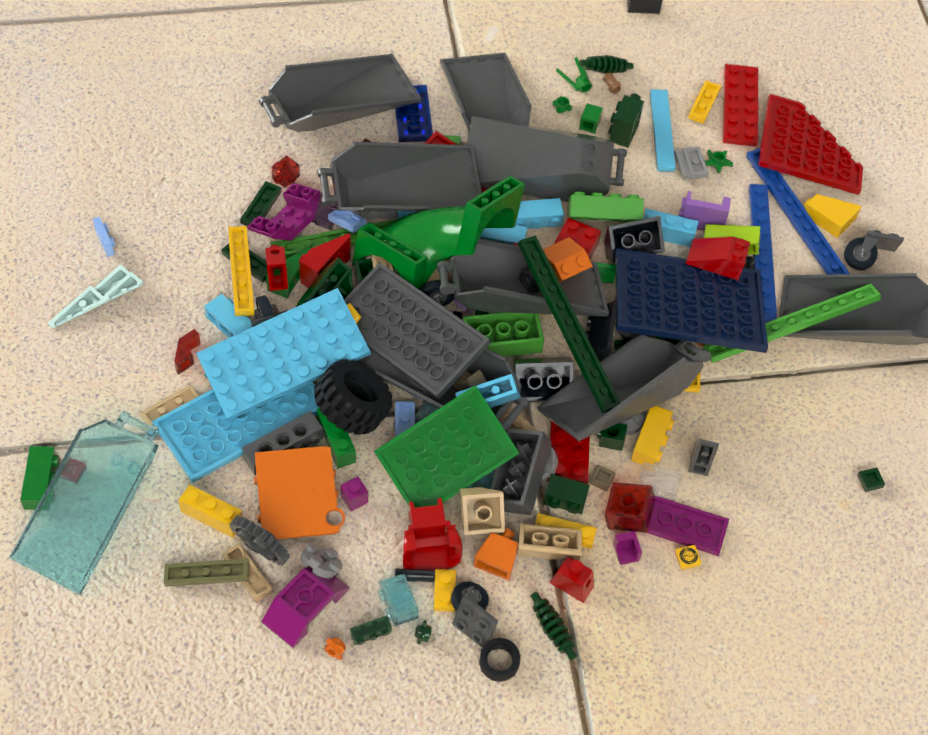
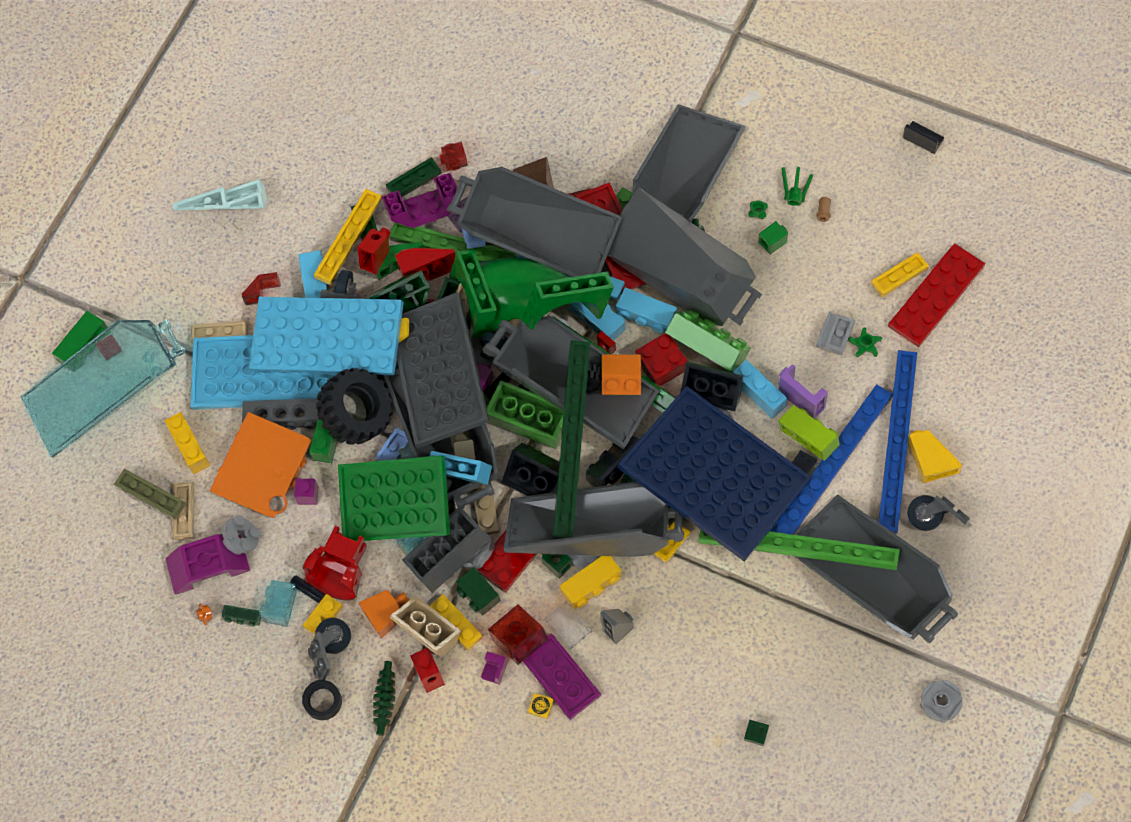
camera: 45 degrees right, 10 degrees up
(102, 232) = (264, 150): light blue plate -> none
(259, 540) = (198, 491): dark grey gear -> none
(337, 92) = (552, 97): dark grey windscreen -> none
(414, 120) = (610, 150): clear blue plate -> none
(423, 632) = (278, 641): dark green plate -> none
(482, 511) = (389, 565): tan slope -> none
(602, 478) = (522, 593): dark tan tile -> none
(606, 64) = (828, 187): dark green piece -> none
(626, 120) = (801, 257): dark green brick -> none
(662, 130) = (836, 283): medium azure tile -> none
(719, 255) = (778, 443): red slope -> none
(802, 148) = (960, 374): red plate -> none

